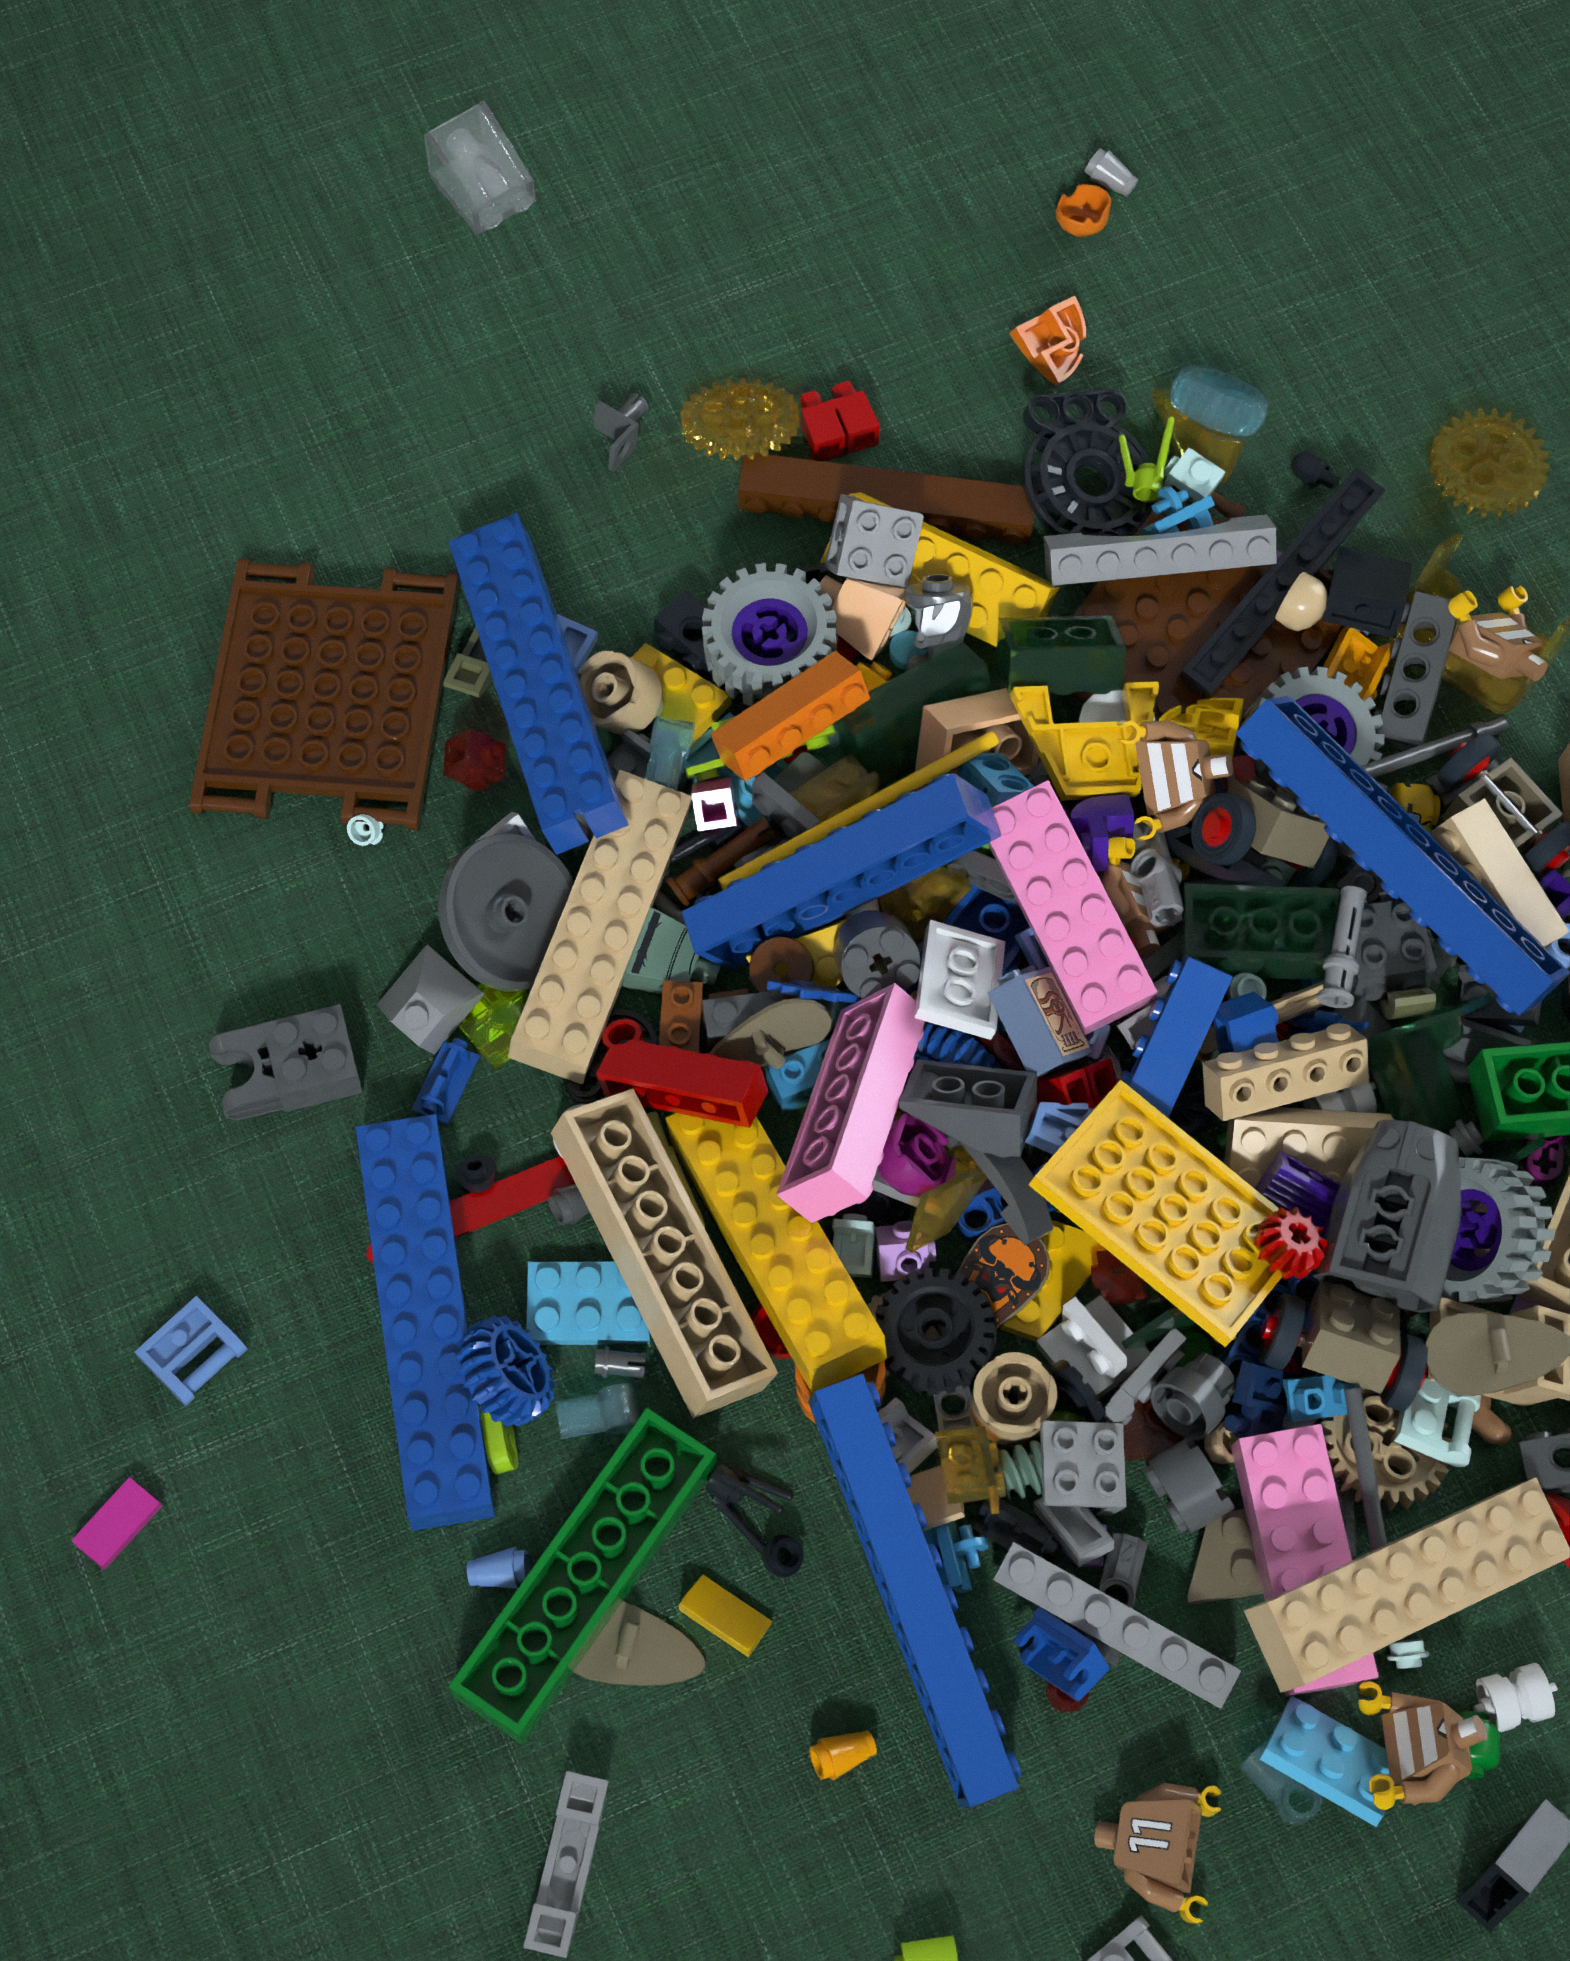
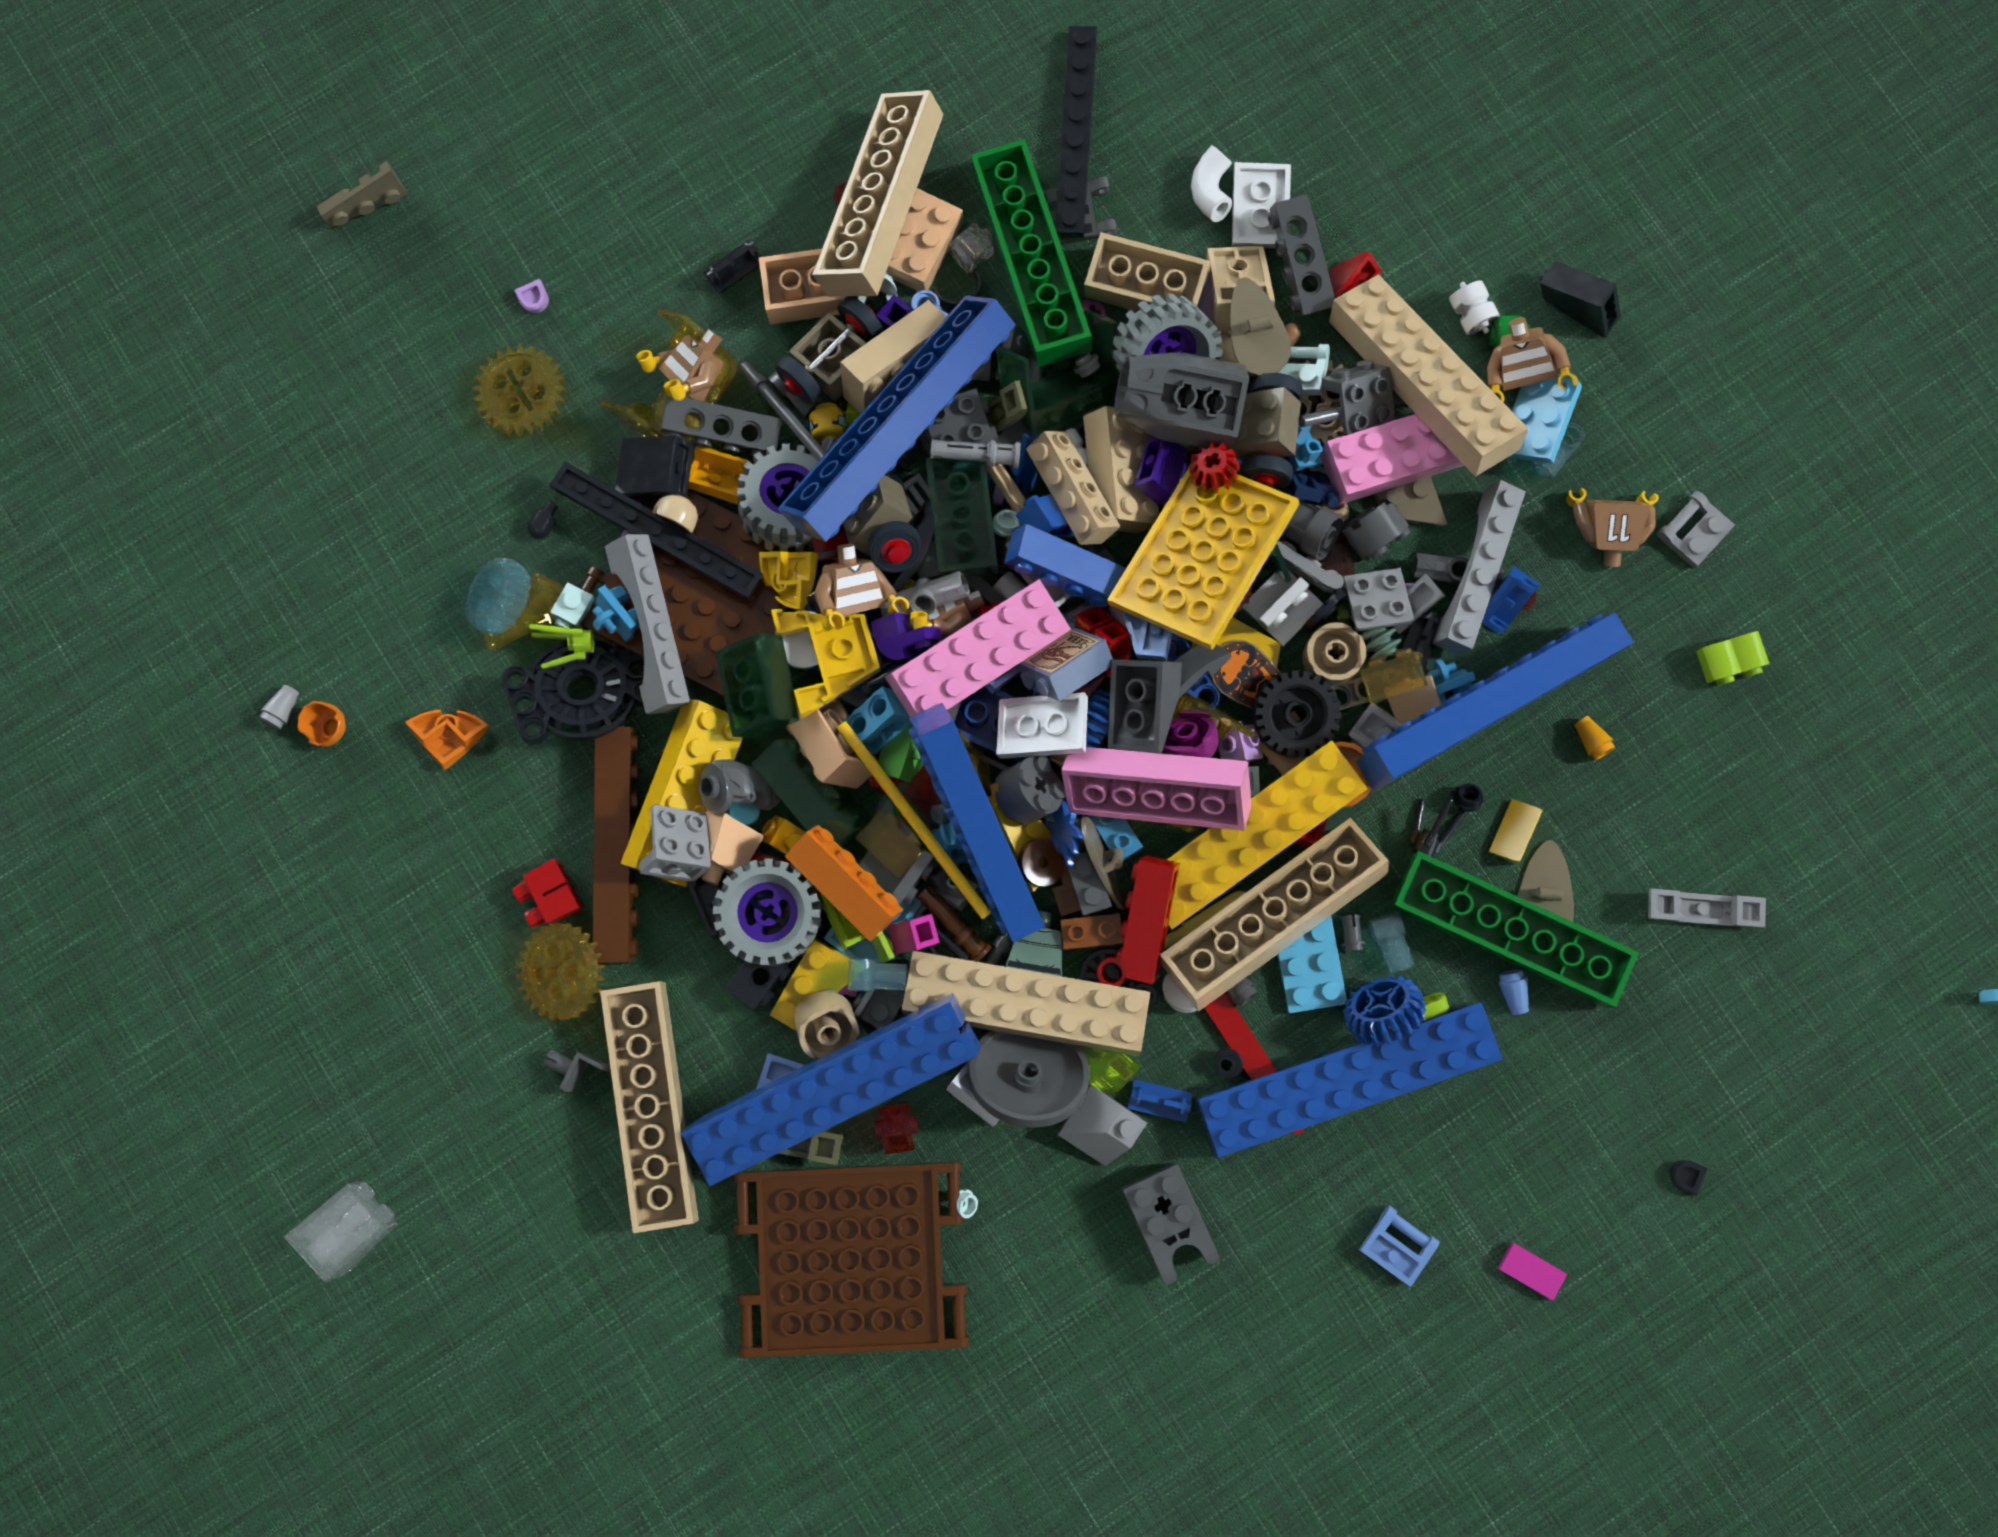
camera: 95 degrees left, 15 degrees up
(195, 1766) = (1687, 1176): none -> black tile
(560, 492) = (649, 1107): none -> tan brick
(1385, 1490) = (1363, 394): none -> dark grey bracket

